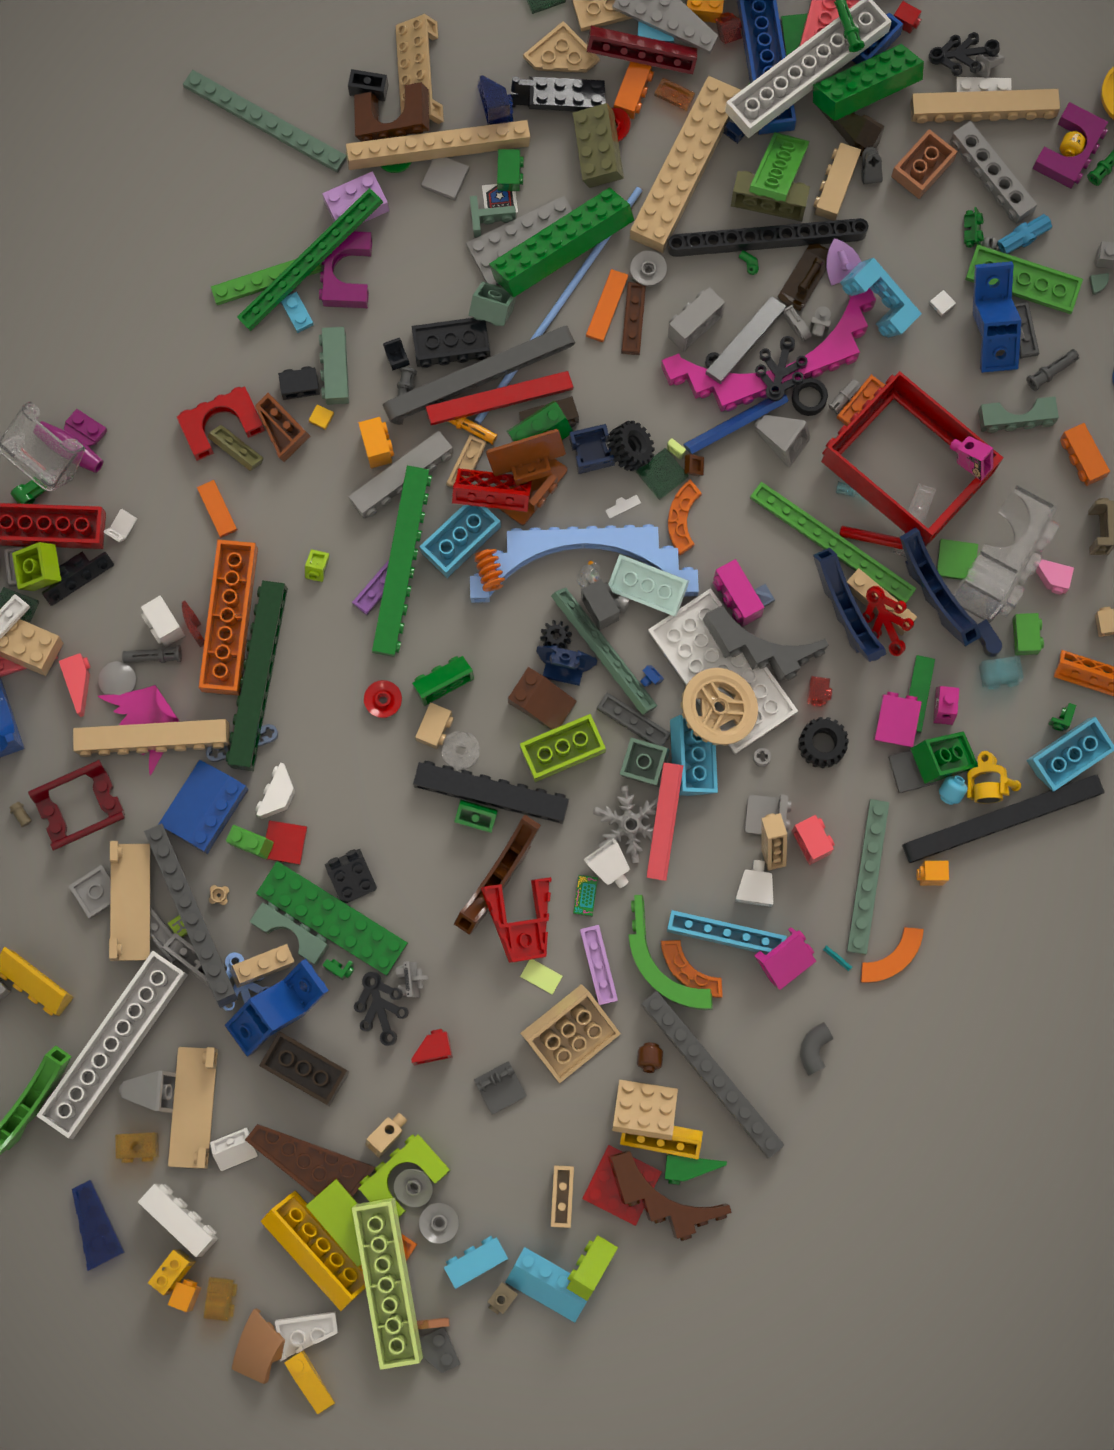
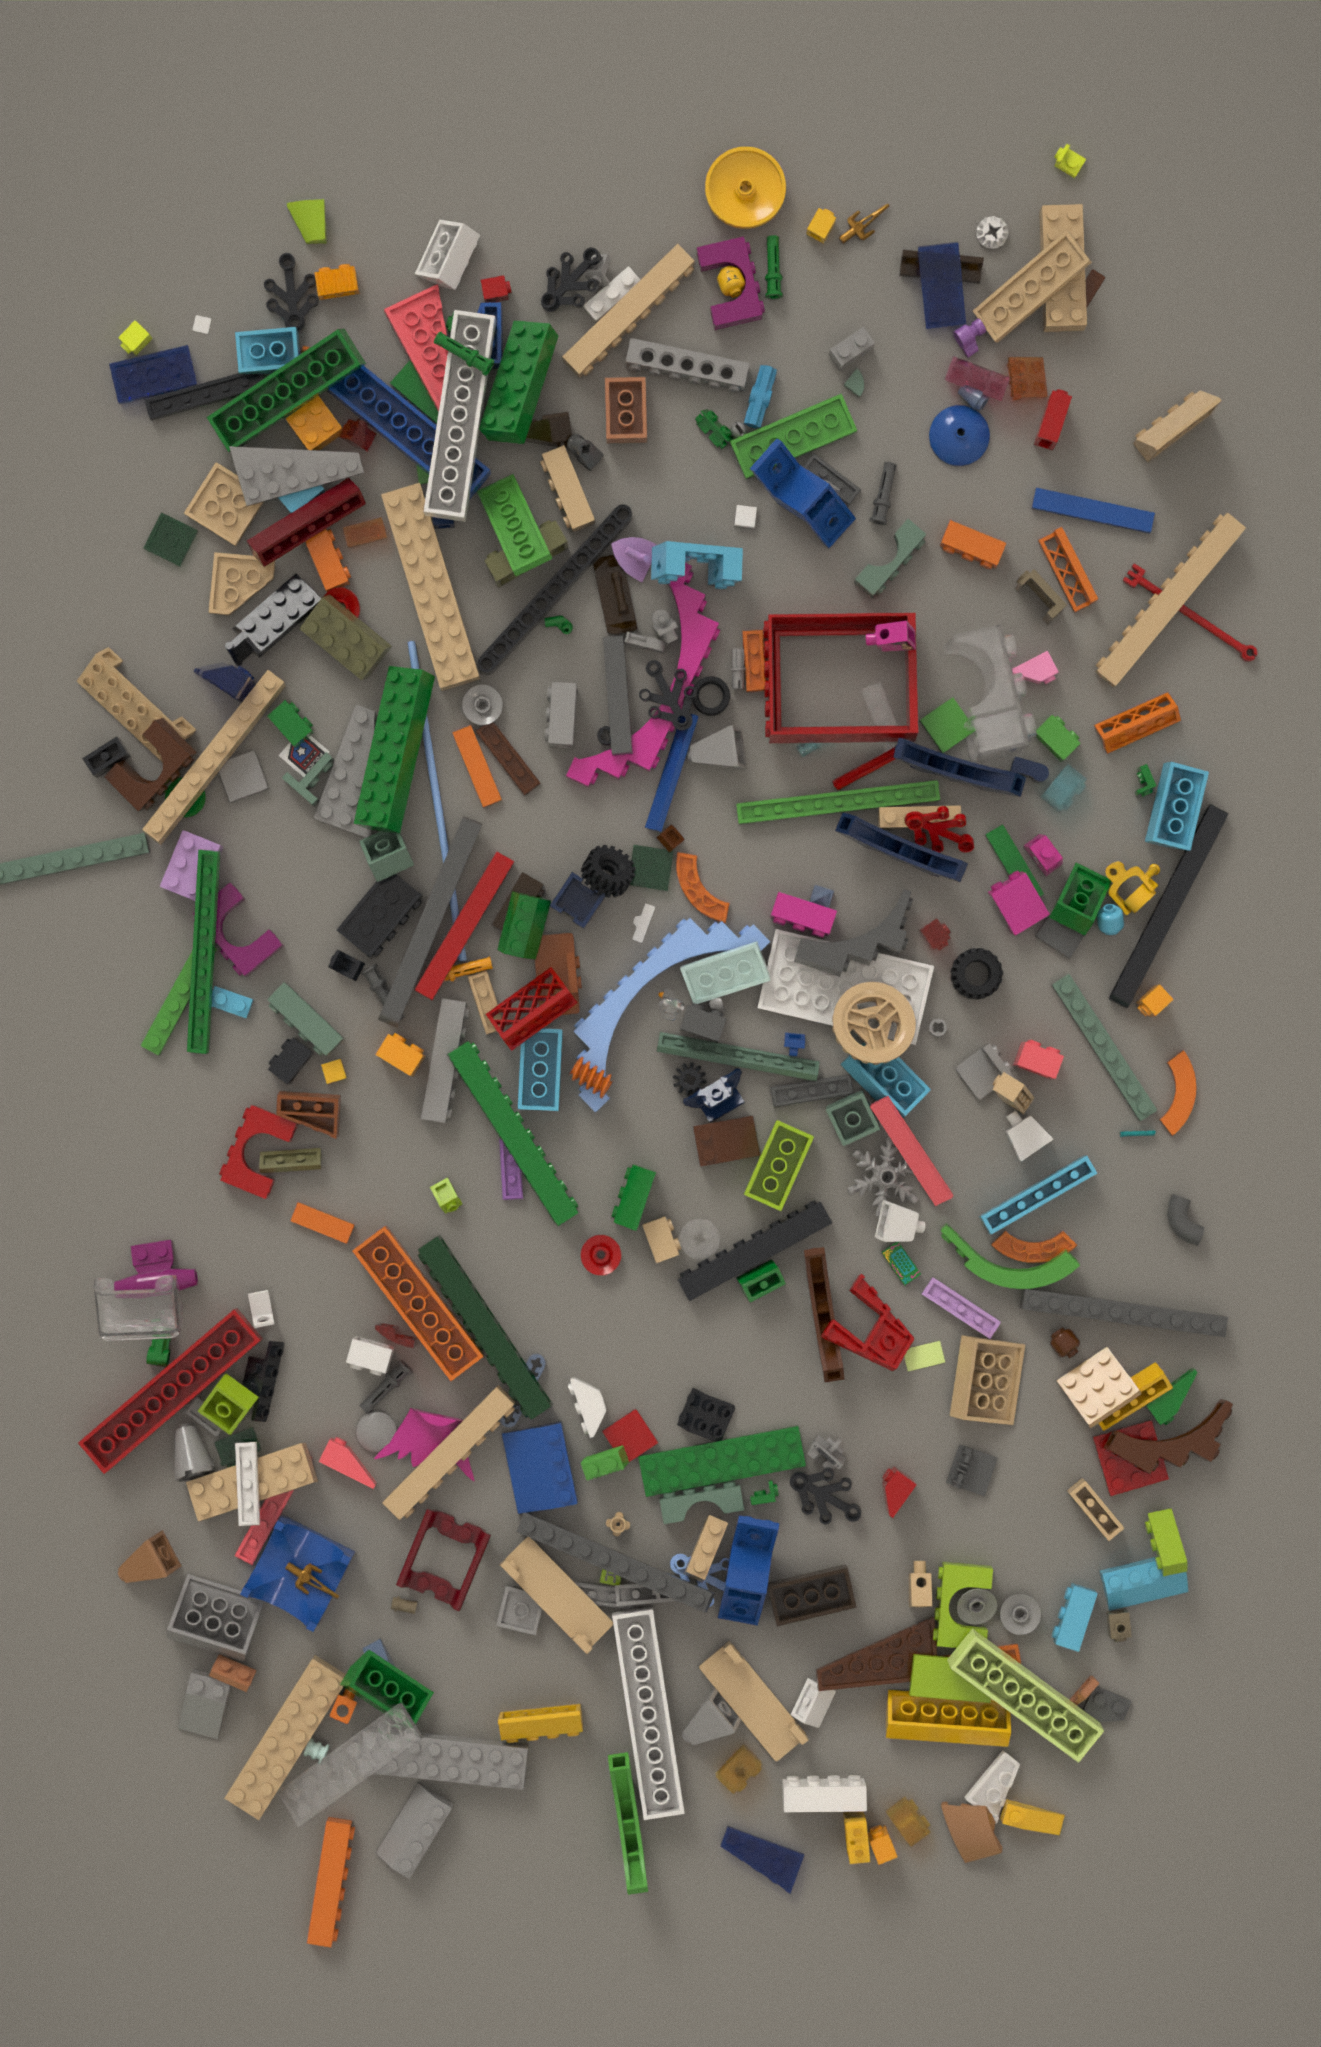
camera: 45 degrees left, 10 degrees up
(527, 457) = (538, 960): dark orange bracket -> none
(676, 449) = (644, 838): yellowish green tile -> none
(787, 959) = (1103, 1172): dark pink panel -> none

